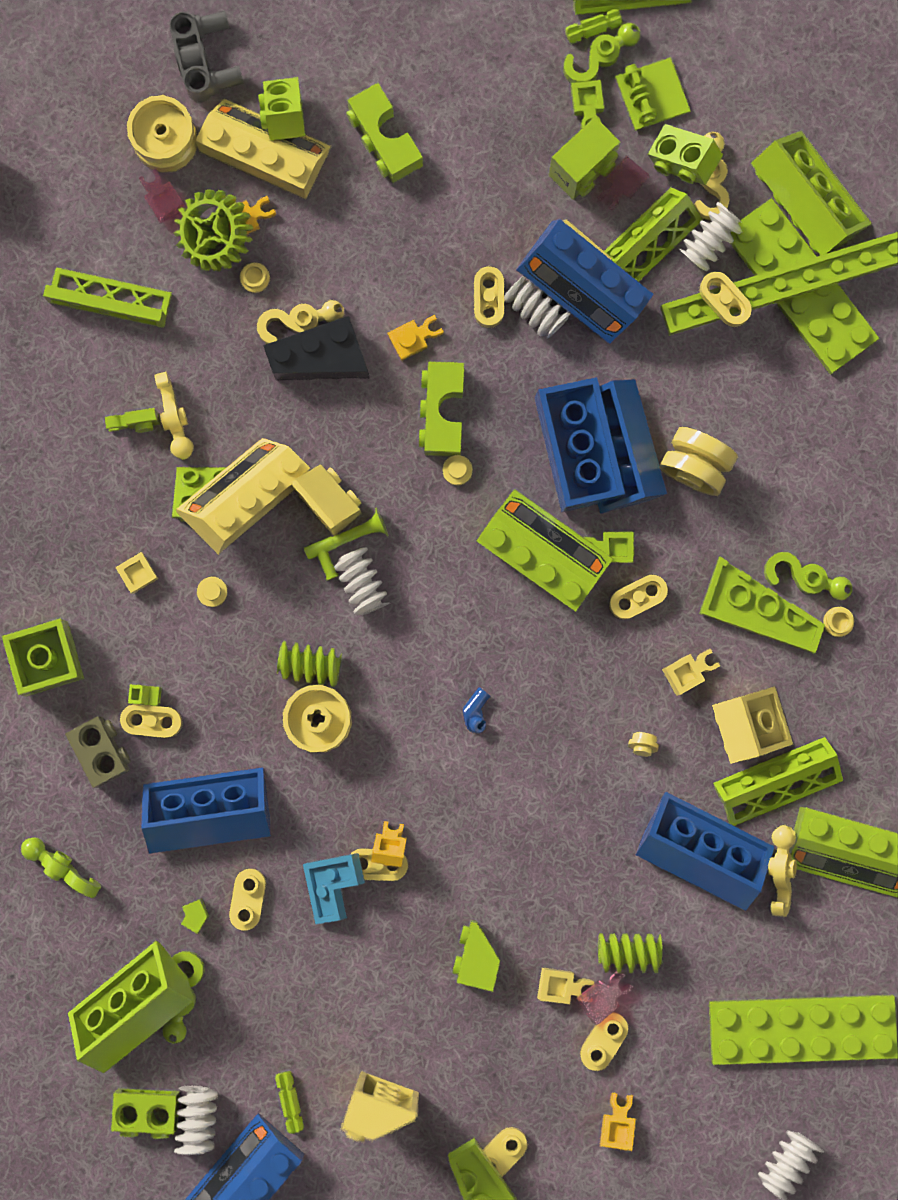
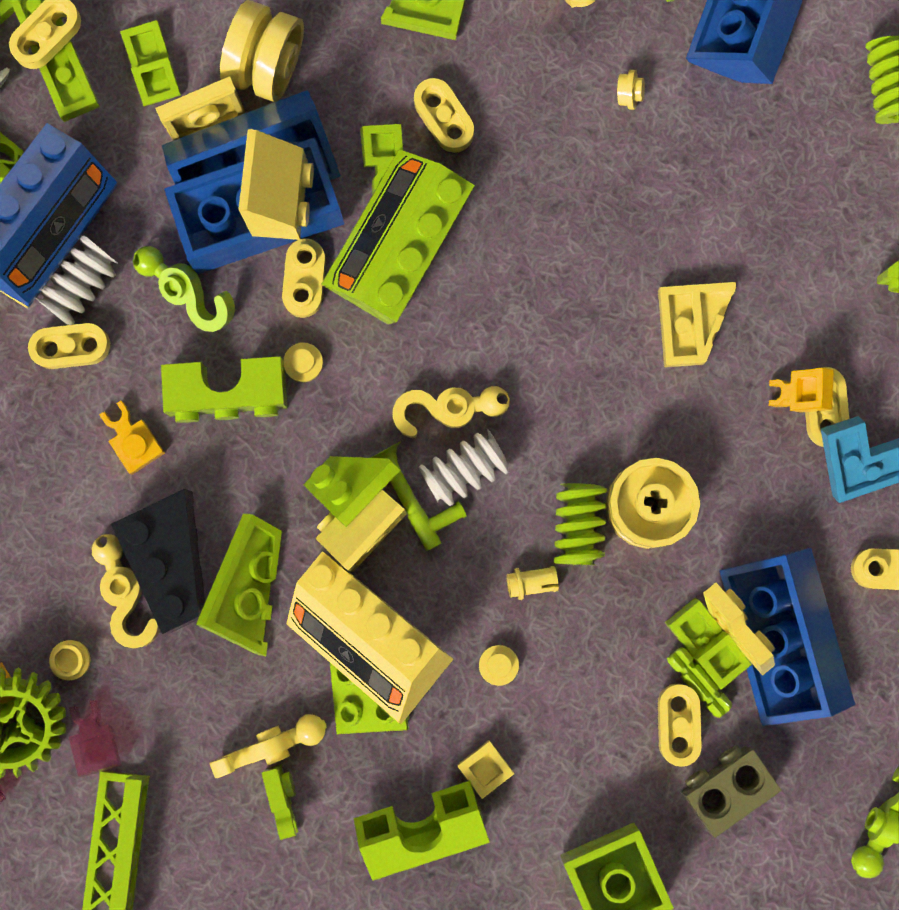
camera: 95 degrees left, 0 degrees up
(89, 499) = (397, 845): none -> lime arch
(144, 695) = (646, 738): lime piece -> none
(181, 740) = (700, 682): none -> lime axle
(189, 290) = (94, 746): none -> clear pink plate
(209, 750) = (708, 643): none -> lime slope
(222, 767) = (729, 614): none -> light yellow plate
(270, 623) = (532, 582): none -> light yellow pin
(290, 407) = (241, 590): none -> lime wing
(357, 493) = (350, 484): none -> lime wing
(409, 578) = (453, 407): none -> light yellow piece
(456, 769) = (691, 320): none -> light yellow wing
(473, 713) = (614, 308): blue arm -> none
(522, 477) = (304, 277): none -> light yellow plate
(523, 386) = (182, 285): none -> lime piece
(582, 458) = (274, 187): none -> light yellow slope
(656, 411) = (201, 109): none -> light yellow plate
(687, 673) = (533, 45): light yellow plate -> none
(703, 377) = (150, 63): none -> lime slope

